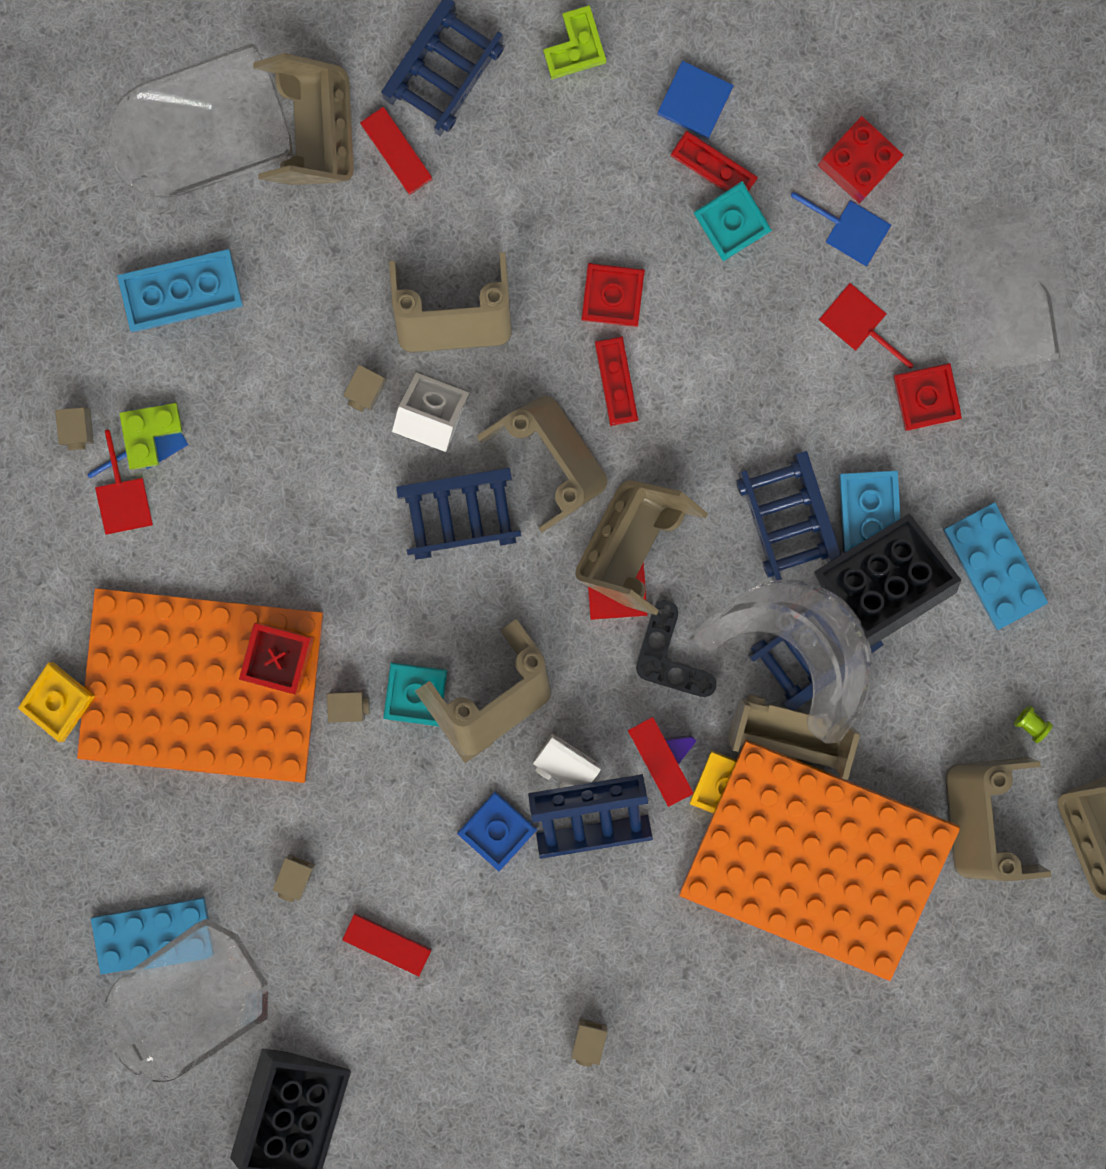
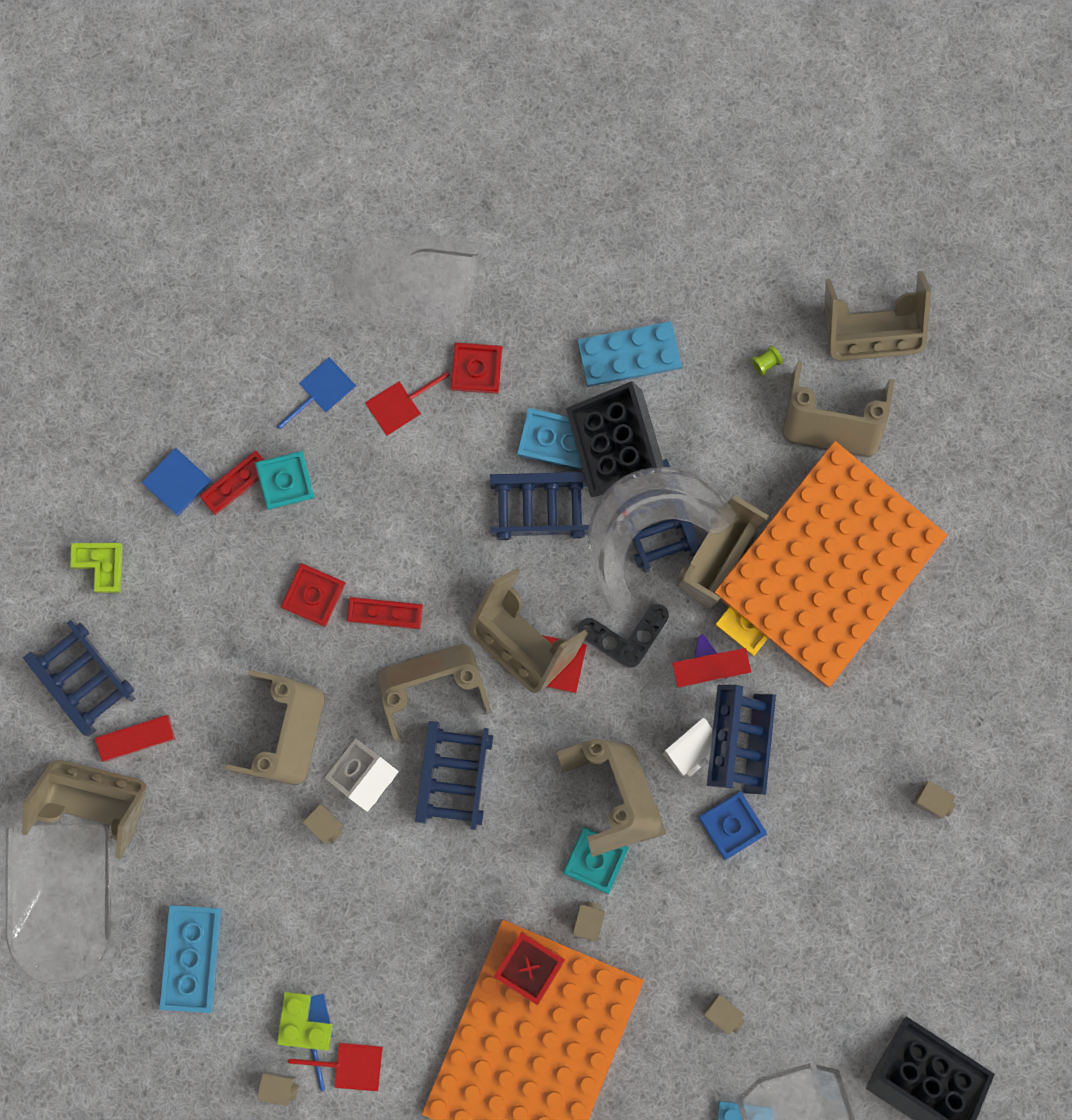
camera: 70 degrees left, 10 degrees down
(386, 944) = (804, 950): red tile -> none
(860, 159) = (269, 364): red brick -> none

